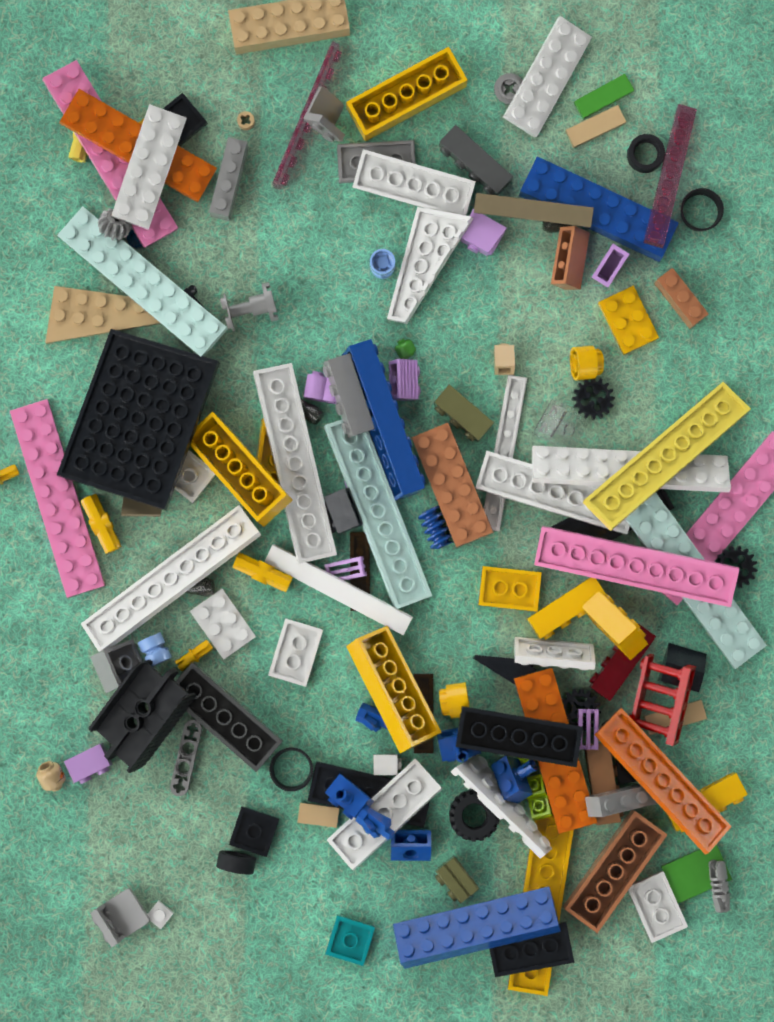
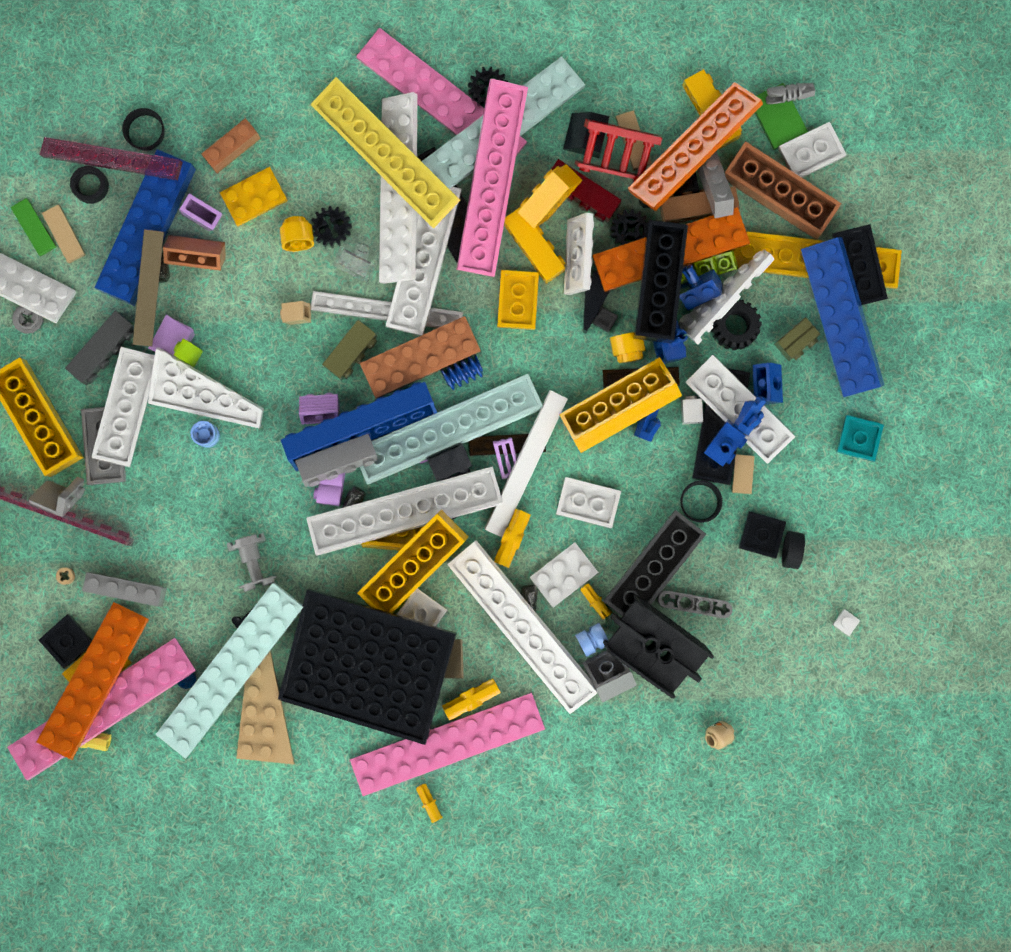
camera: 90 degrees left, 0 degrees up
(88, 763) = (705, 699): lavender brick -> none
(112, 226) = (172, 700): light grey gear -> none
(120, 917) = (851, 660): light grey bracket -> none
(148, 167) = (114, 667): white plate -> none
(405, 348) = (288, 410): bright green piece -> none
(466, 248) = (187, 352): none -> lime slope
(486, 678) = (605, 319): none -> dark grey tile
(588, 725) = (647, 212): lavender tile -> none

